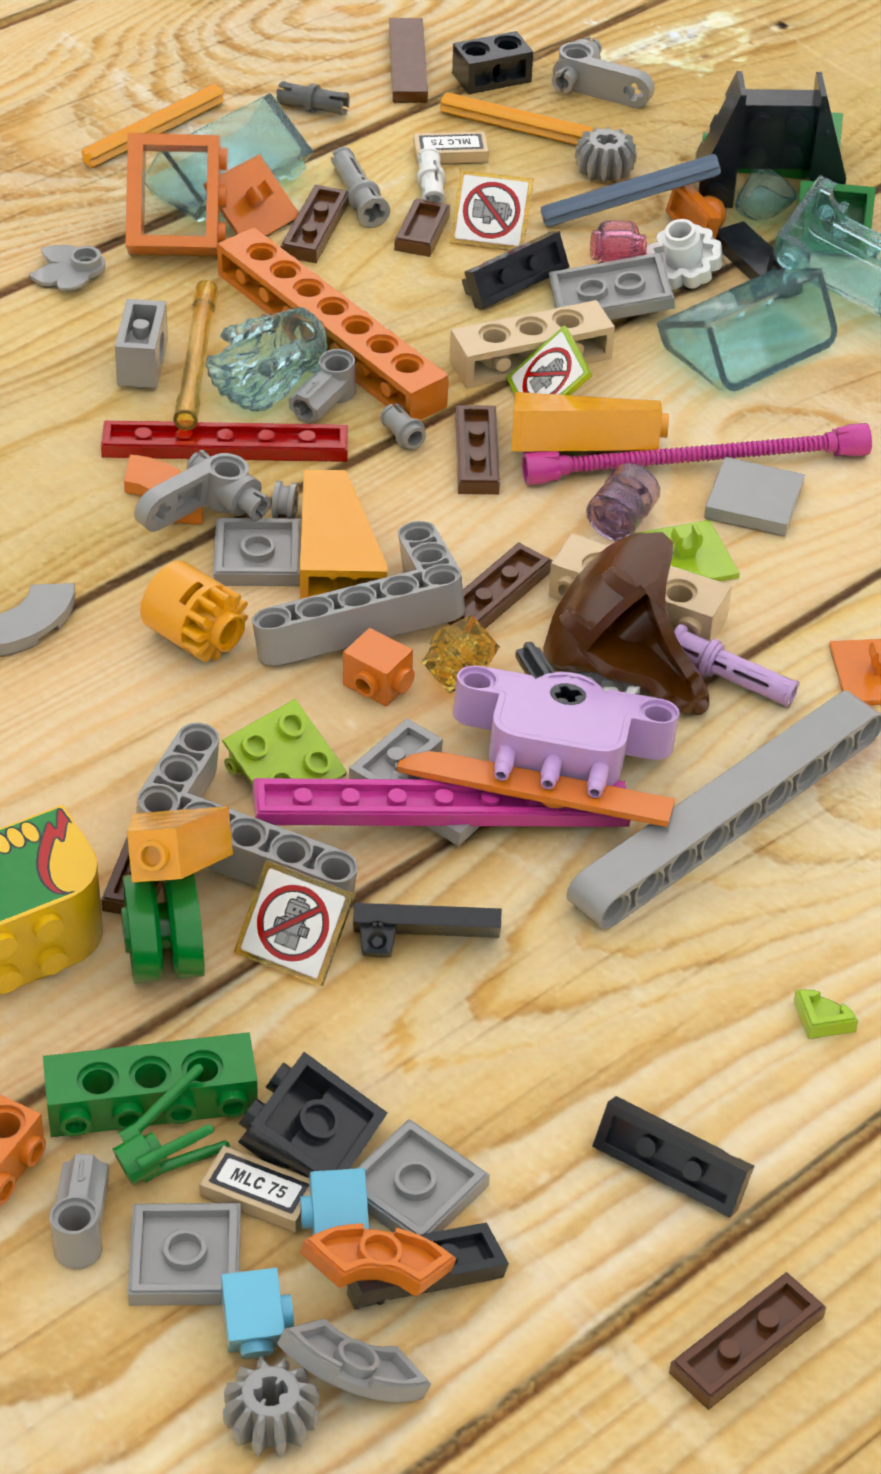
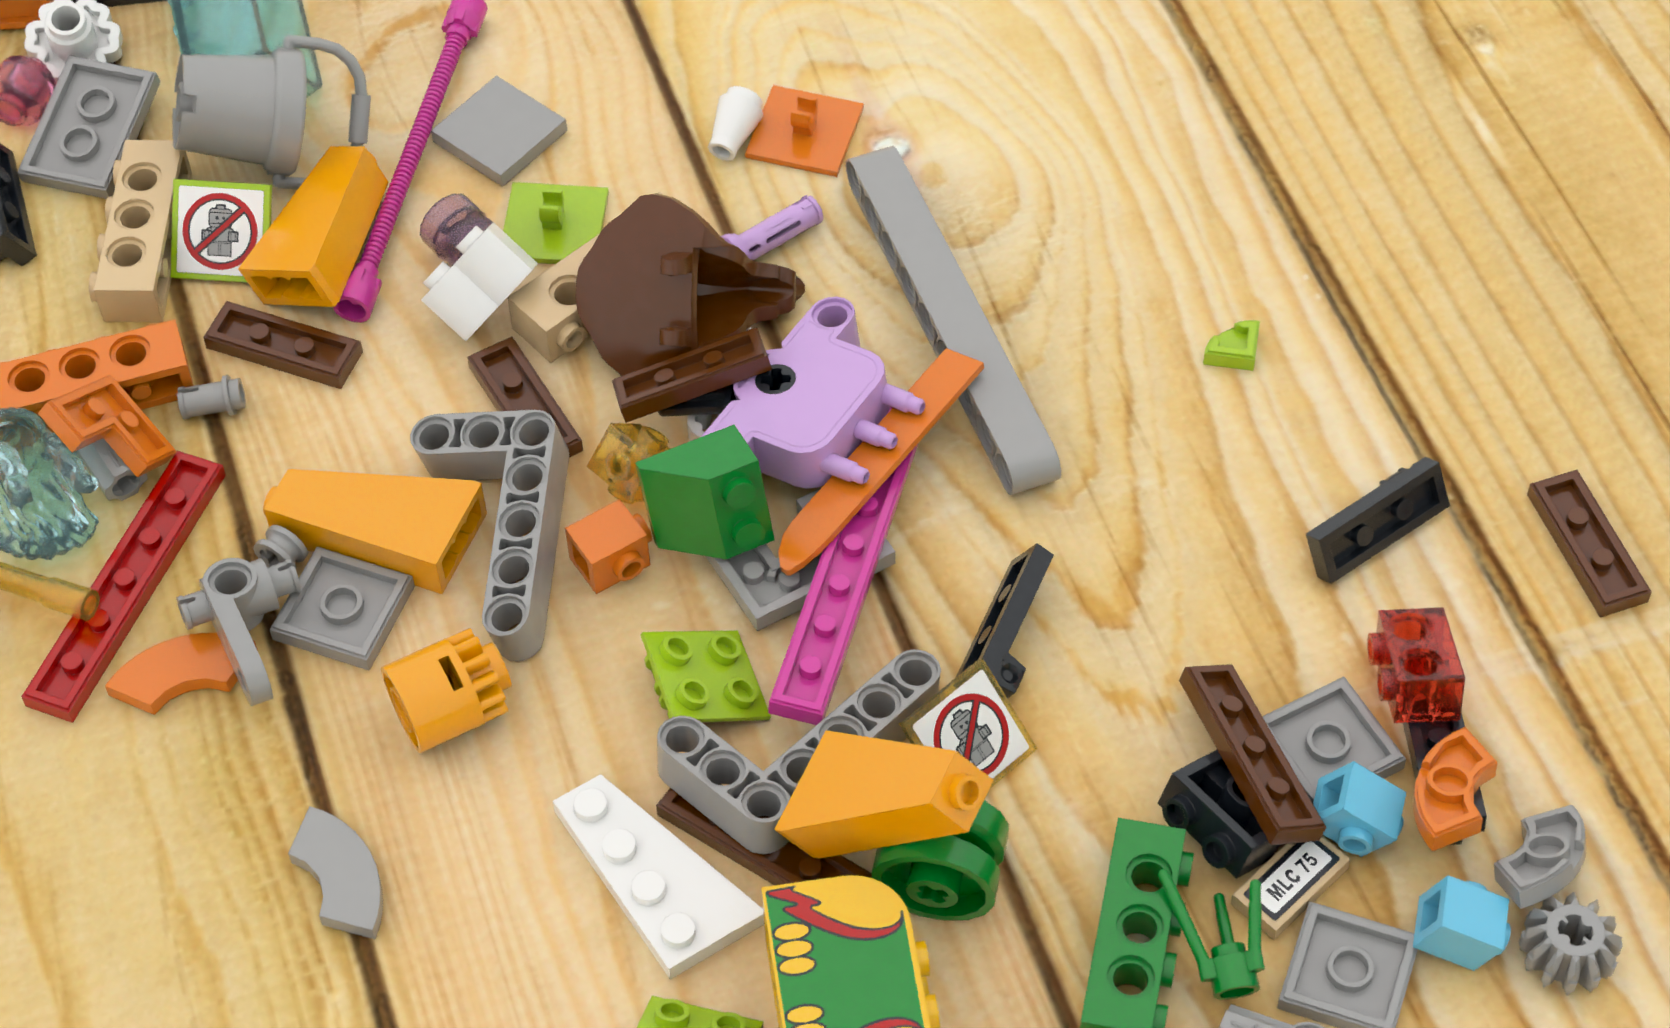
camera: 65 degrees left, 10 degrees up
(103, 775) = (660, 883): none -> white wing
(339, 365) = (108, 412): none -> orange tile
(360, 1113) = (1252, 754): none -> reddish brown tile
(432, 688) = (706, 496): none -> green slope
(515, 1215) = (1417, 665): none -> clear red brick
(548, 648) = (691, 374): none -> reddish brown tile
(575, 507) = (478, 280): none -> white brick
(659, 342) = (257, 105): none -> light grey piece
(850, 620) = (735, 119): none -> white cone

